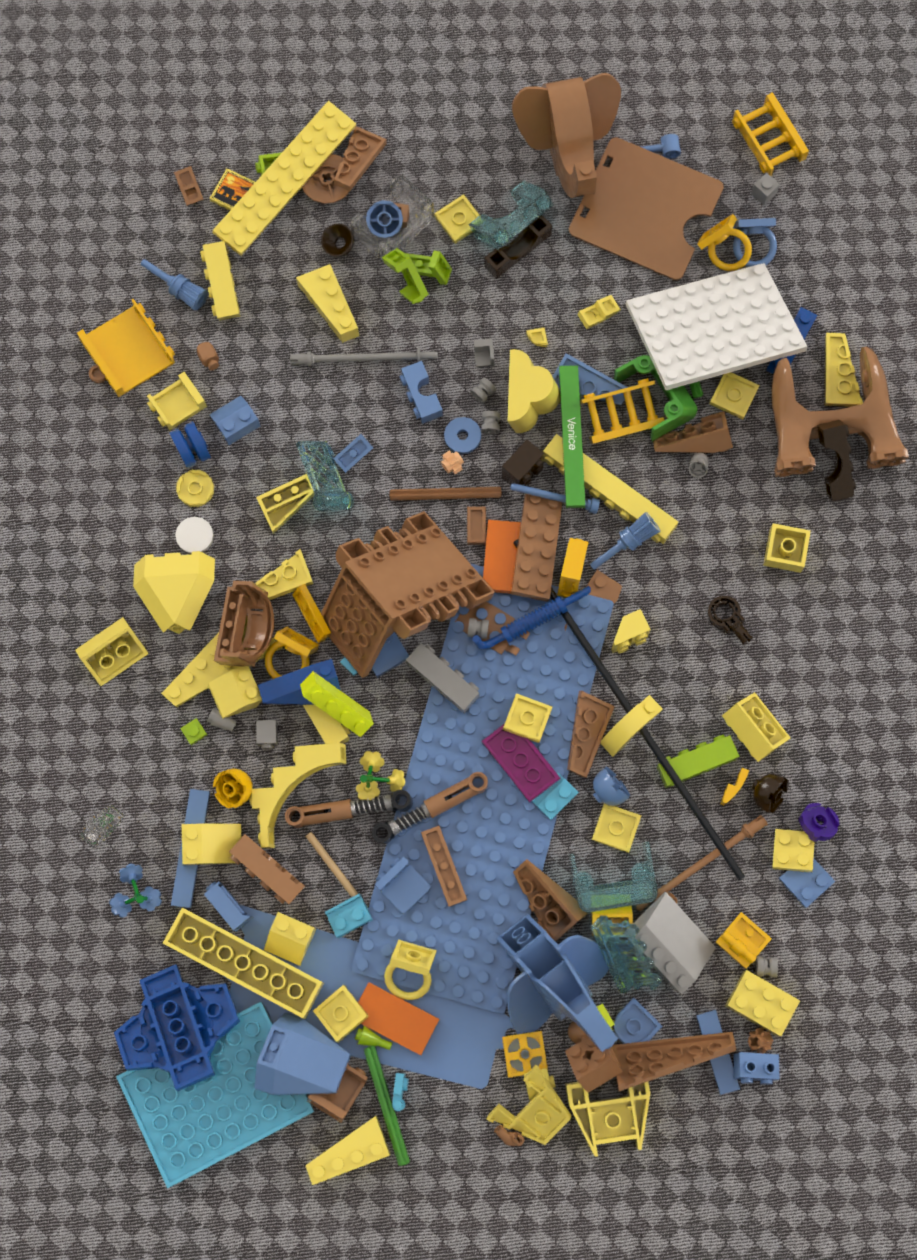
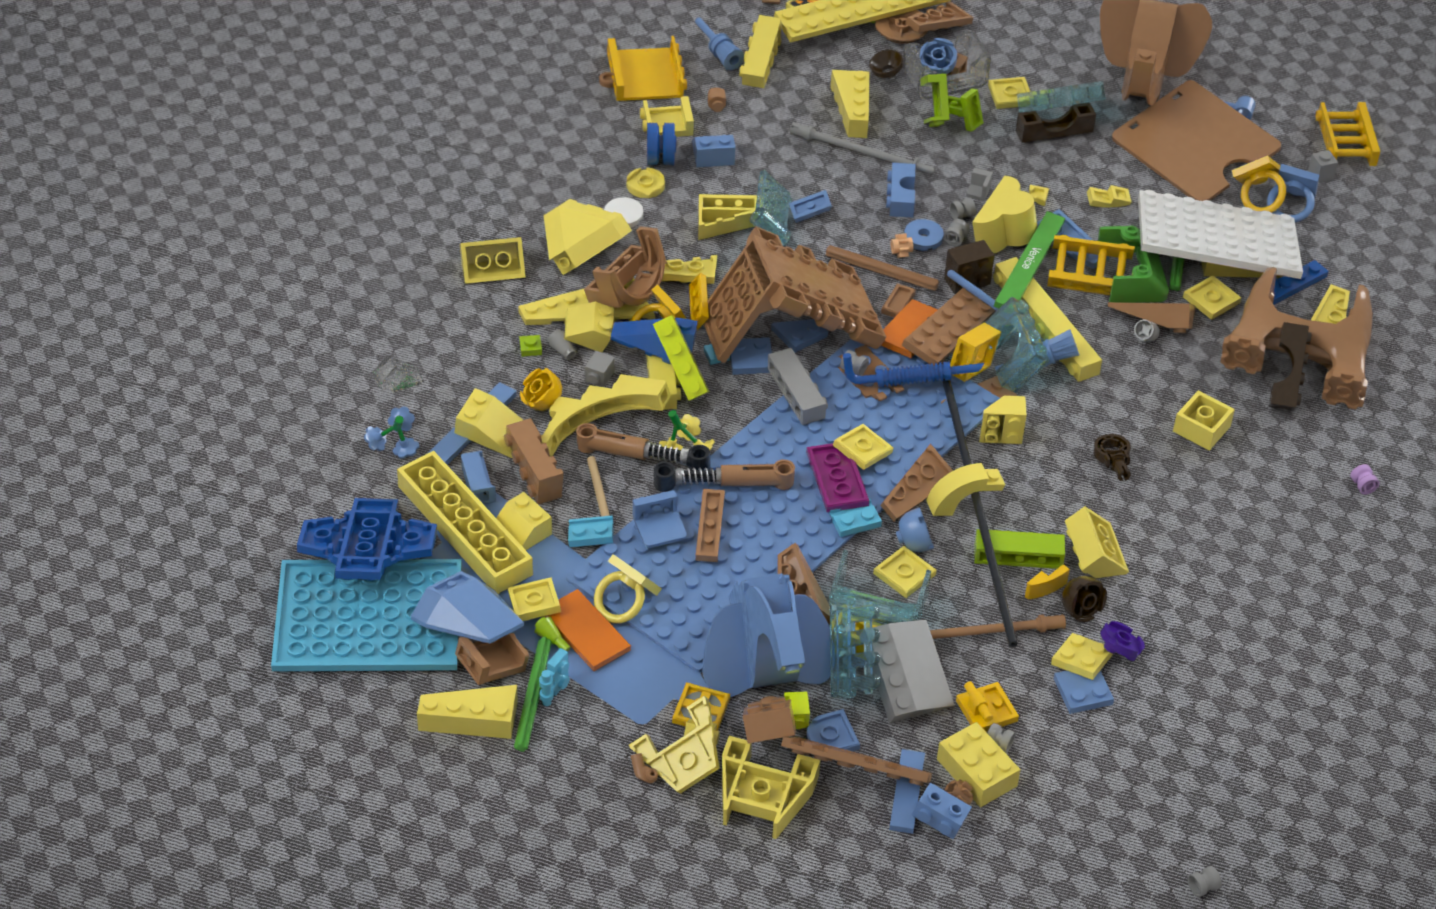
camera: 20 degrees right, 30 degrees down
(622, 552) = (1030, 353): none -> clear light blue arch

